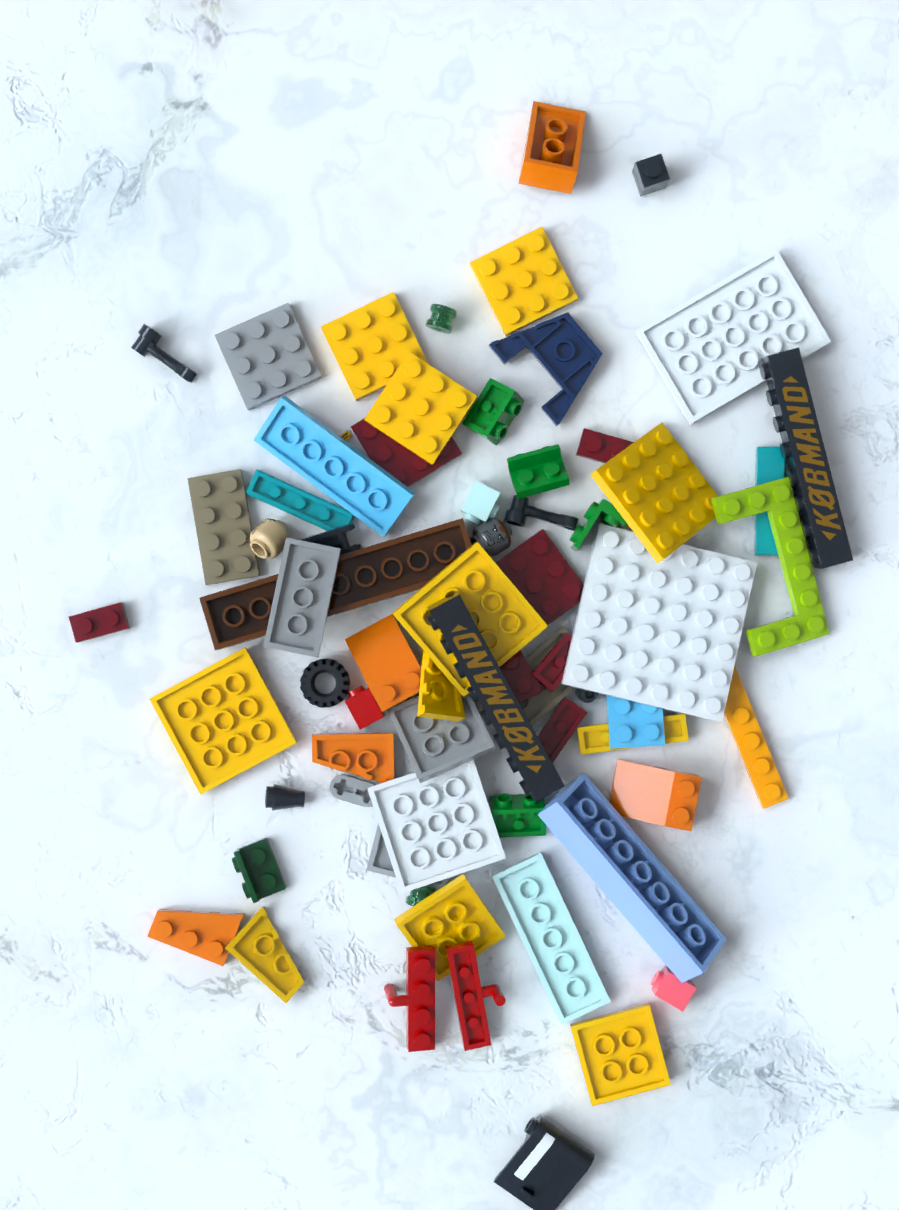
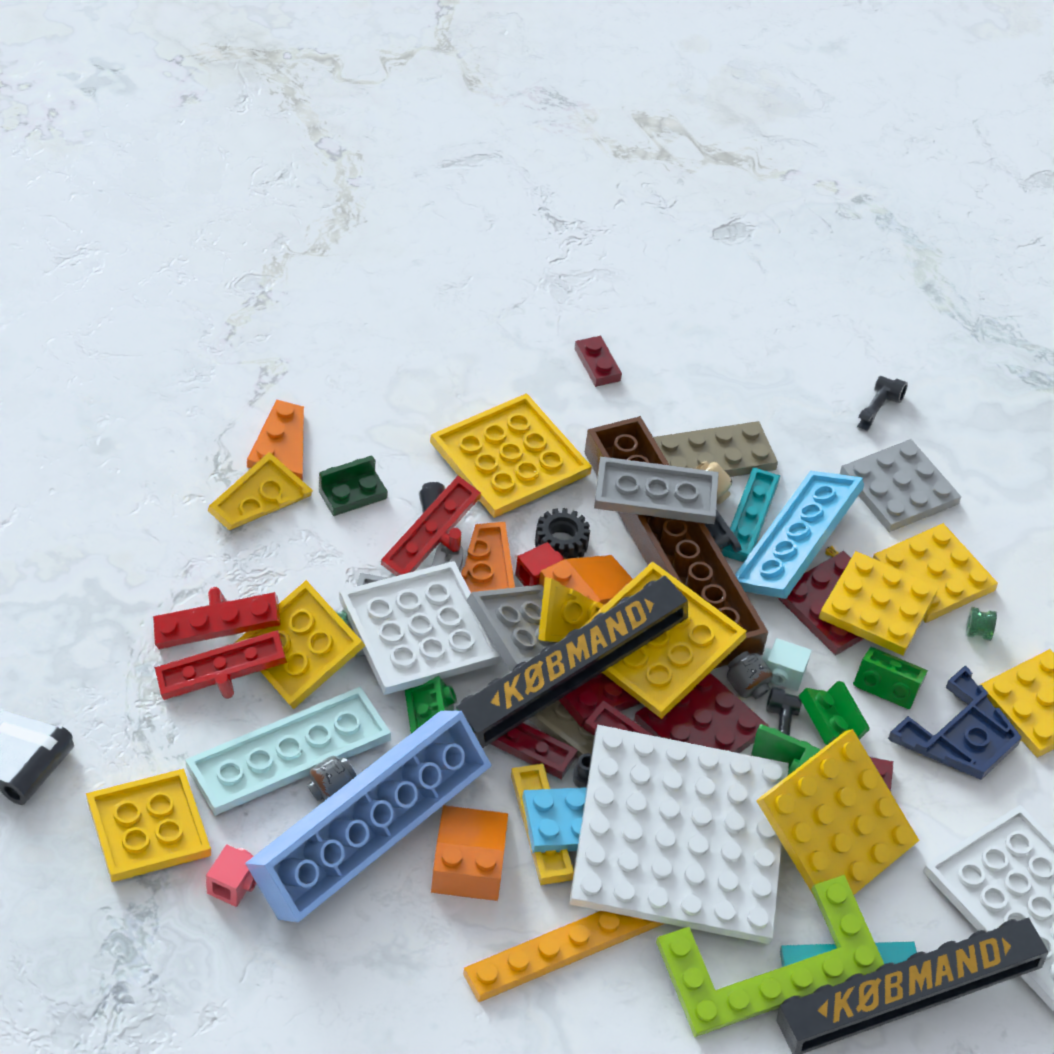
camera: 80 degrees right, 40 degrees down
(322, 802) = (433, 528): none -> red plate
(585, 904) = (330, 777): none -> dark grey head

